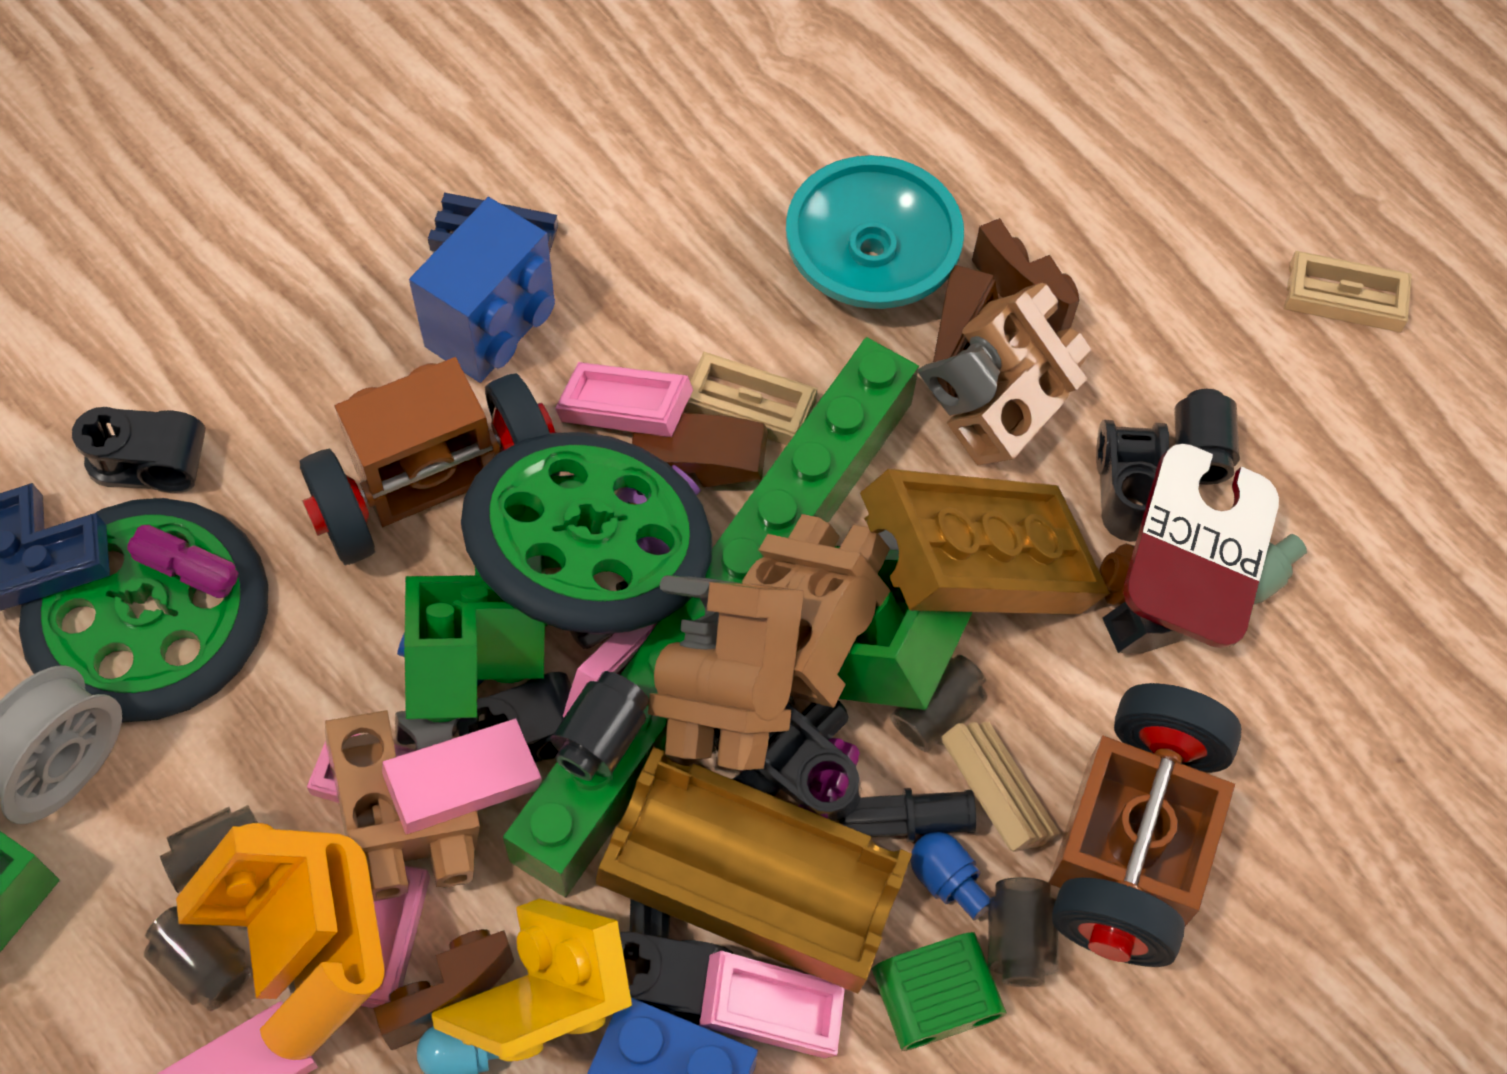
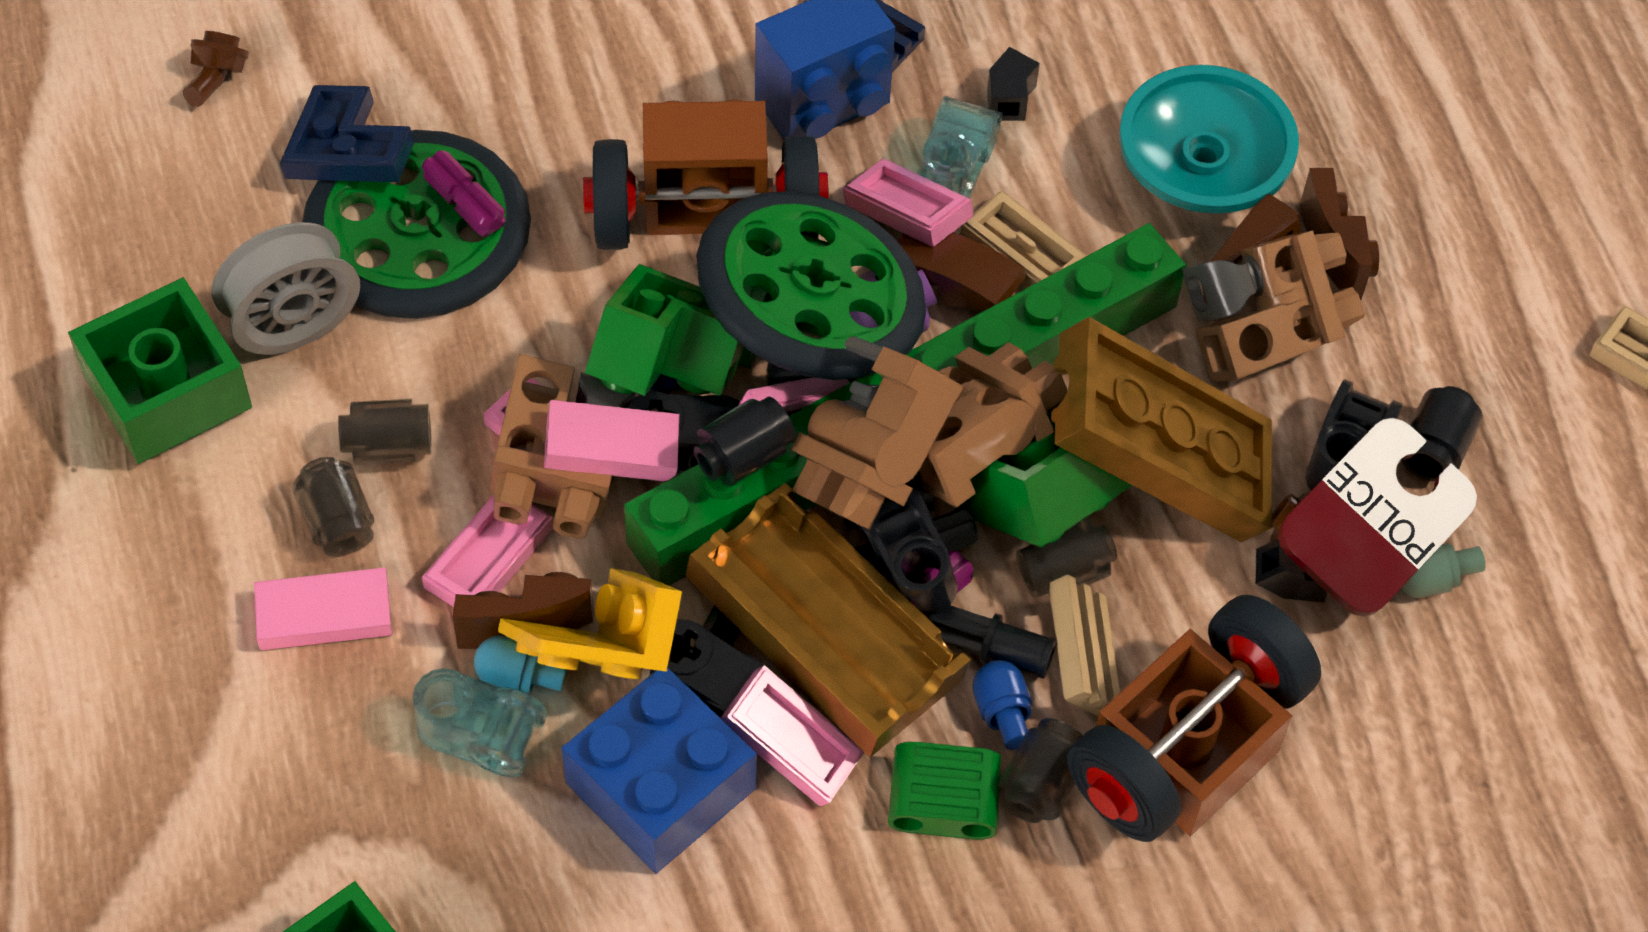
camera: 25 degrees right, 5 degrees down
(146, 451) = (475, 96): black piece -> none
(305, 922) = (435, 496): light orange piece -> none
(645, 322) = (960, 144): none -> clear light blue piece
(662, 245) = (1010, 84): none -> black piece

